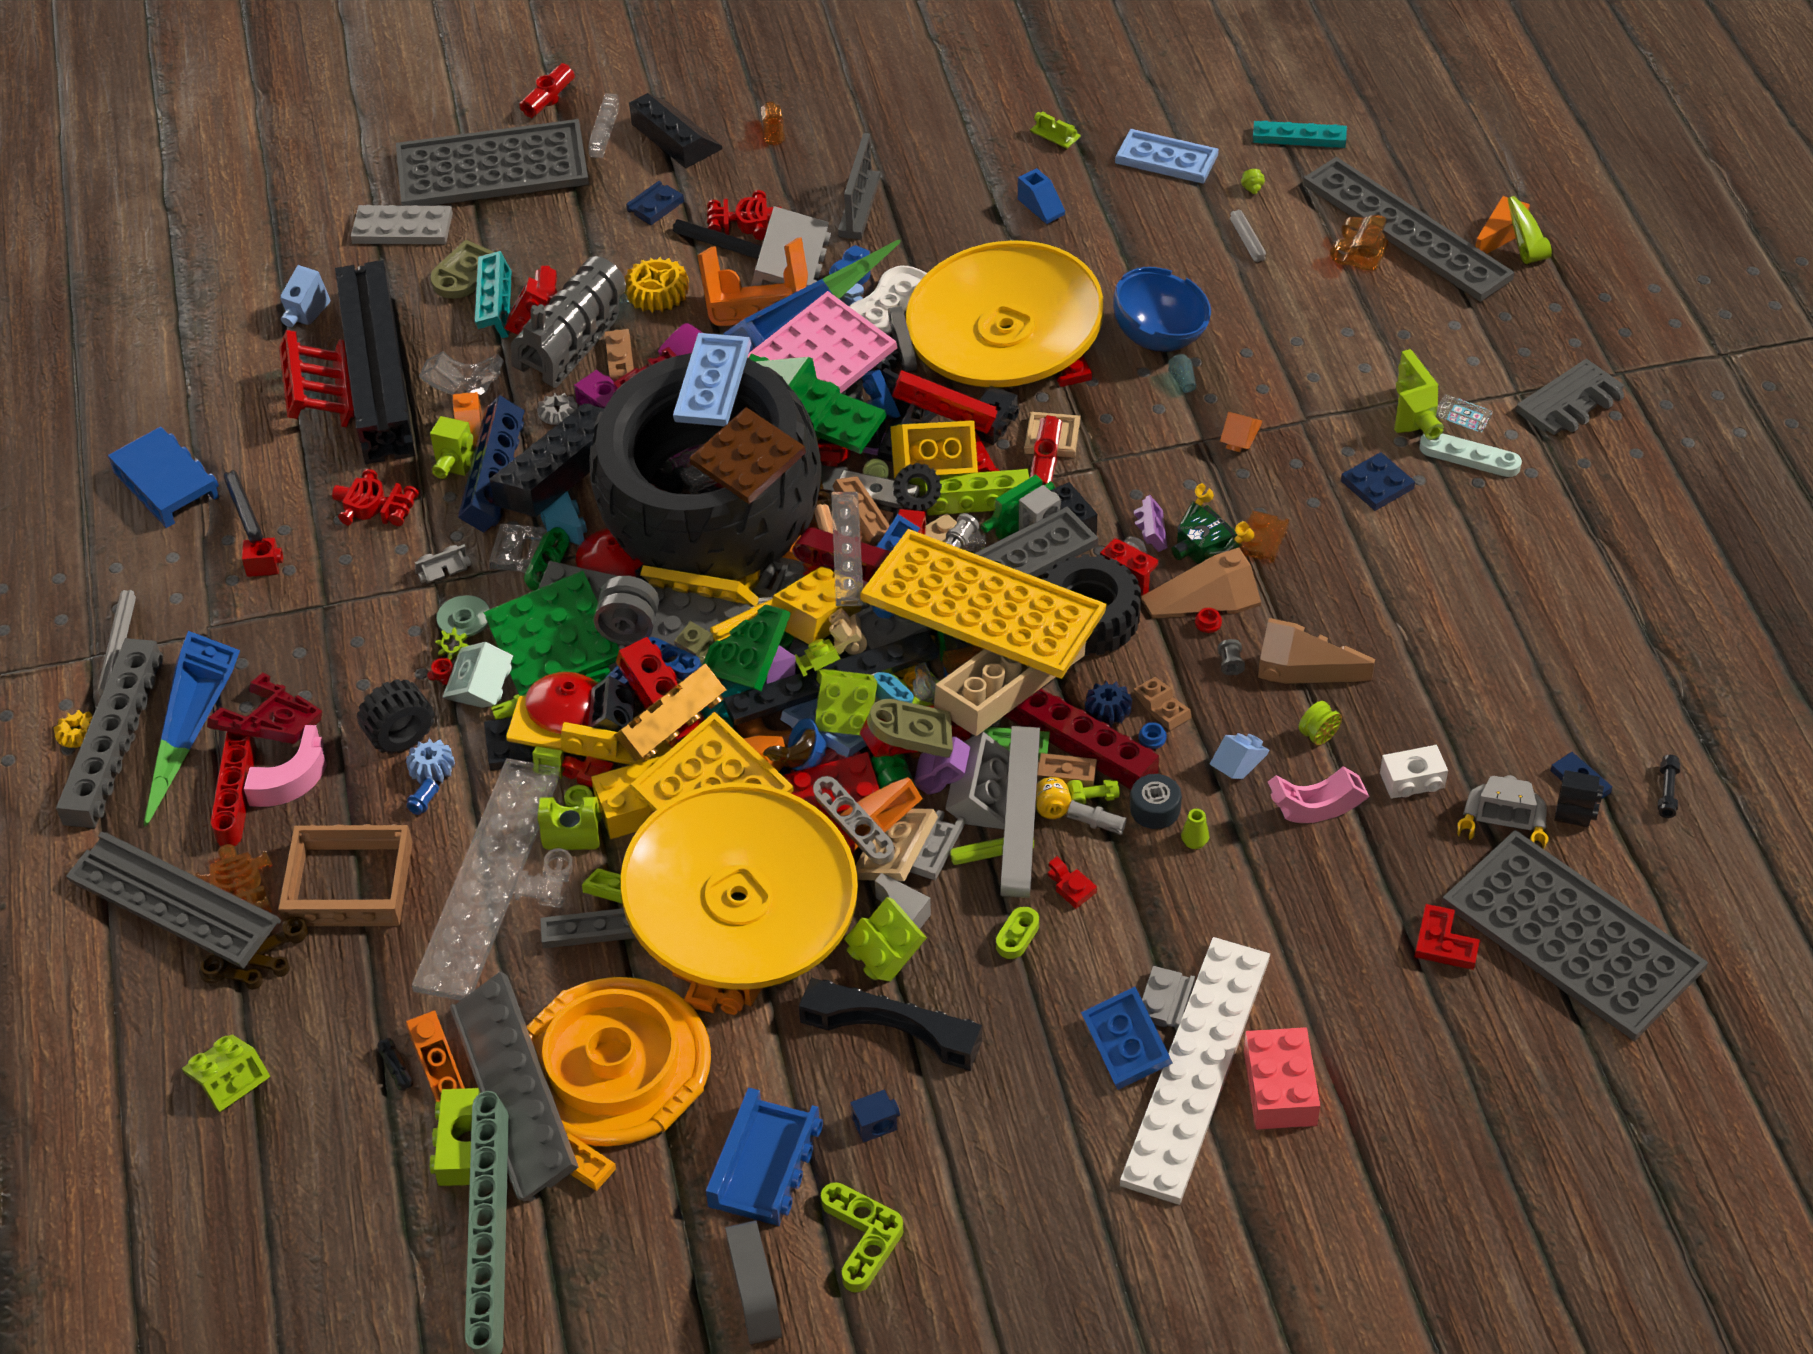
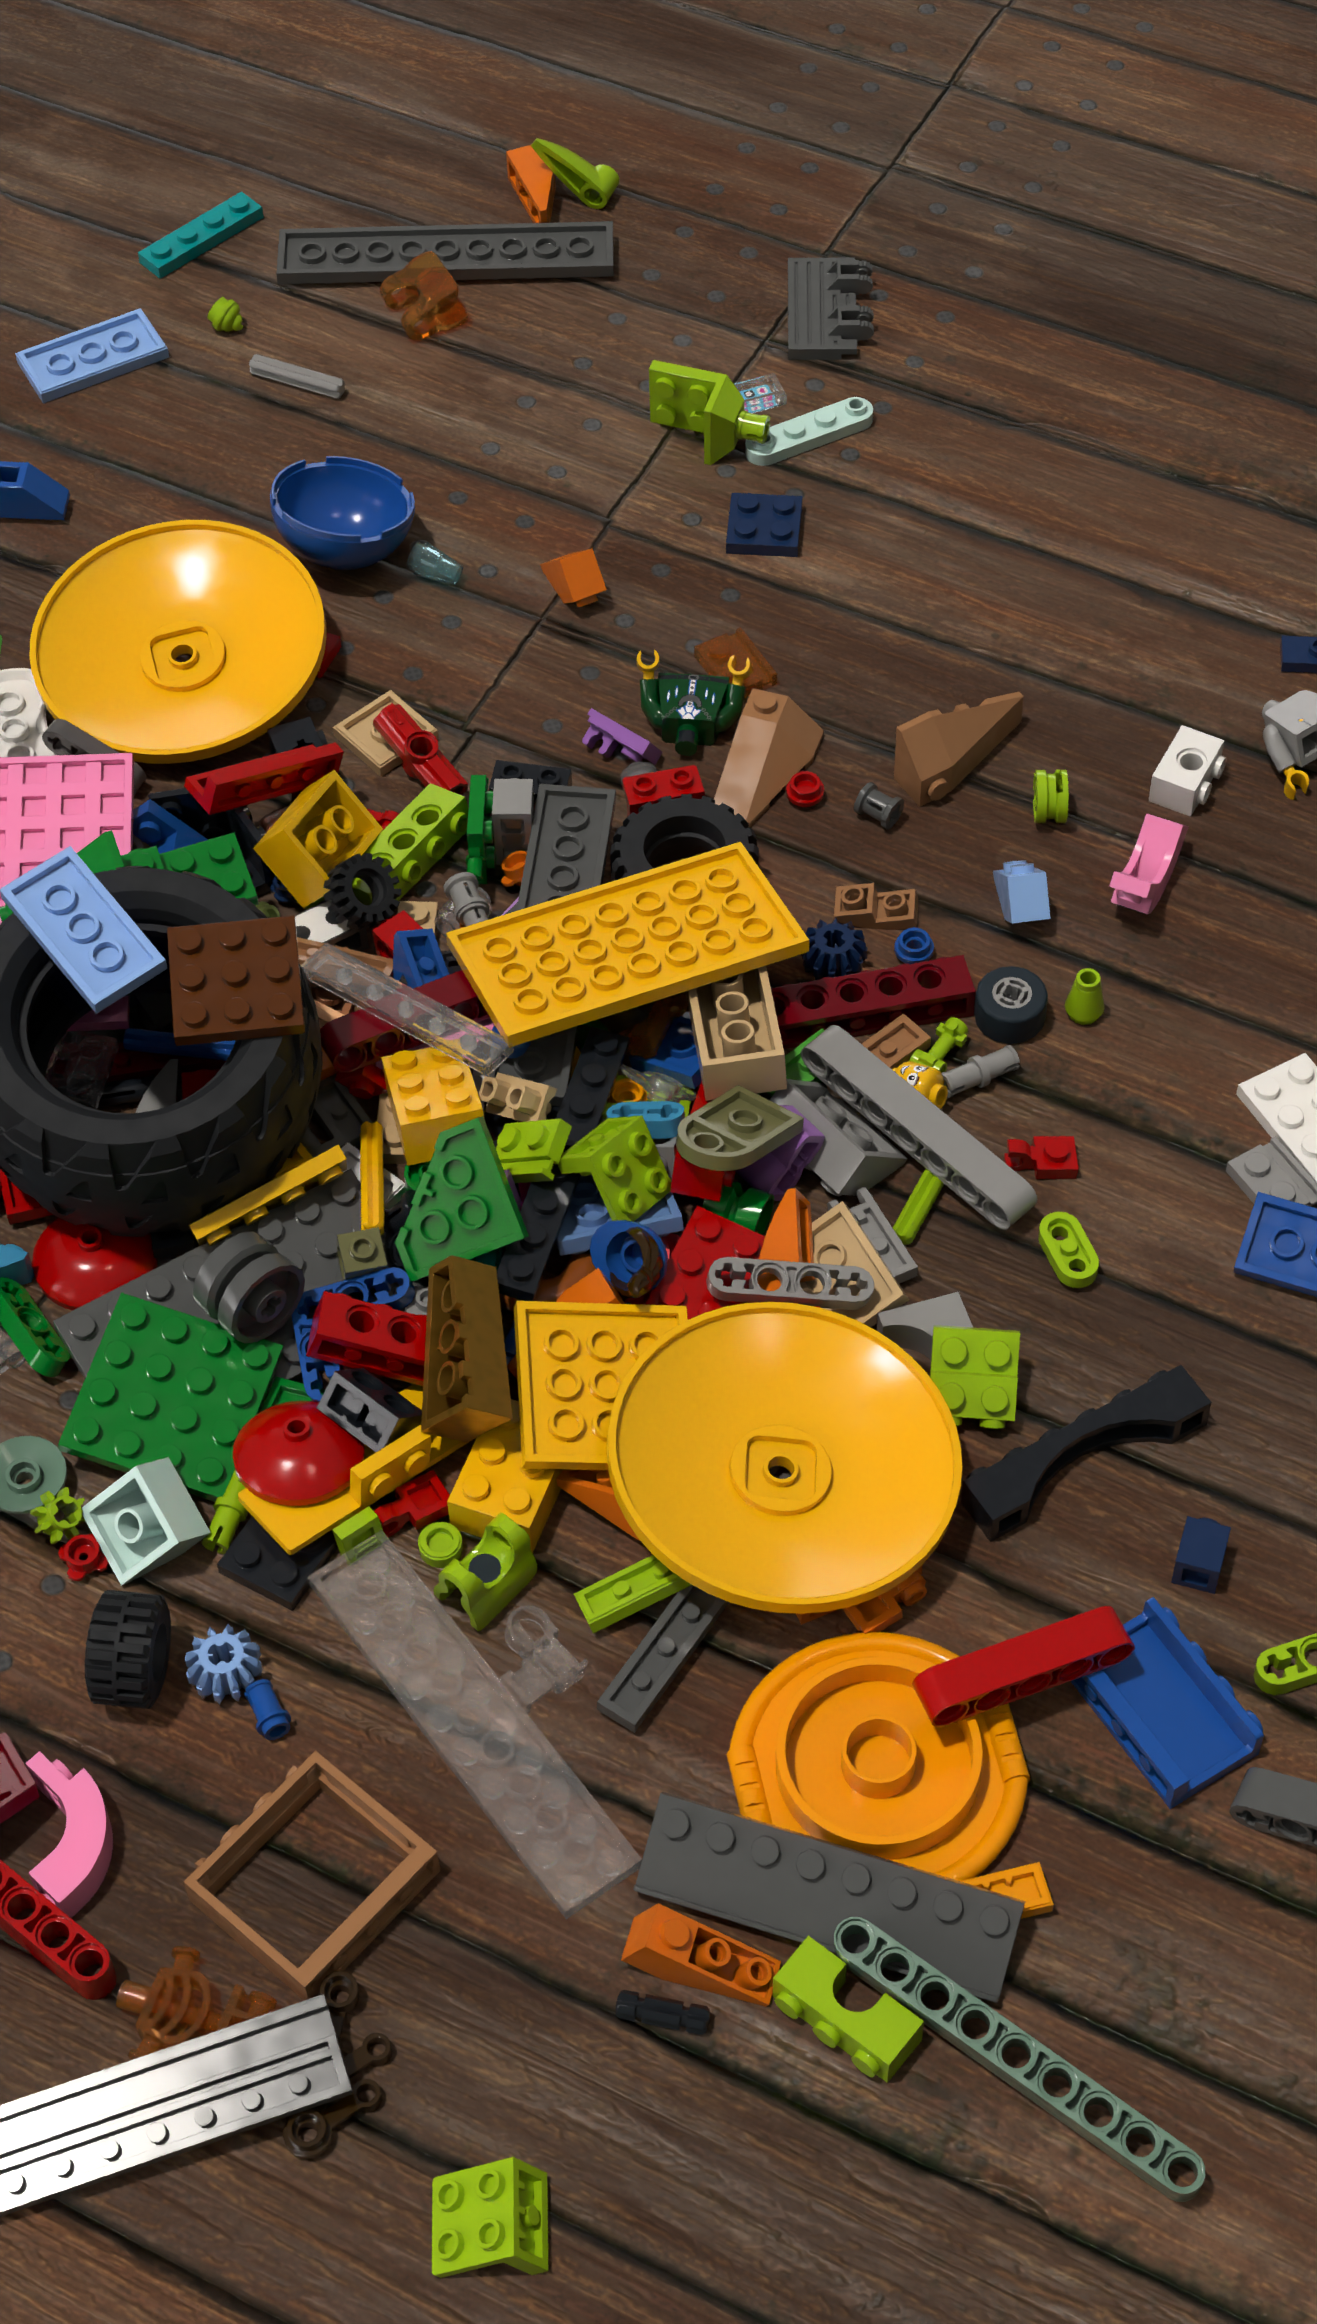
camera: 50 degrees left, 5 degrees up
(711, 1071) = (1022, 1666): none -> red beam

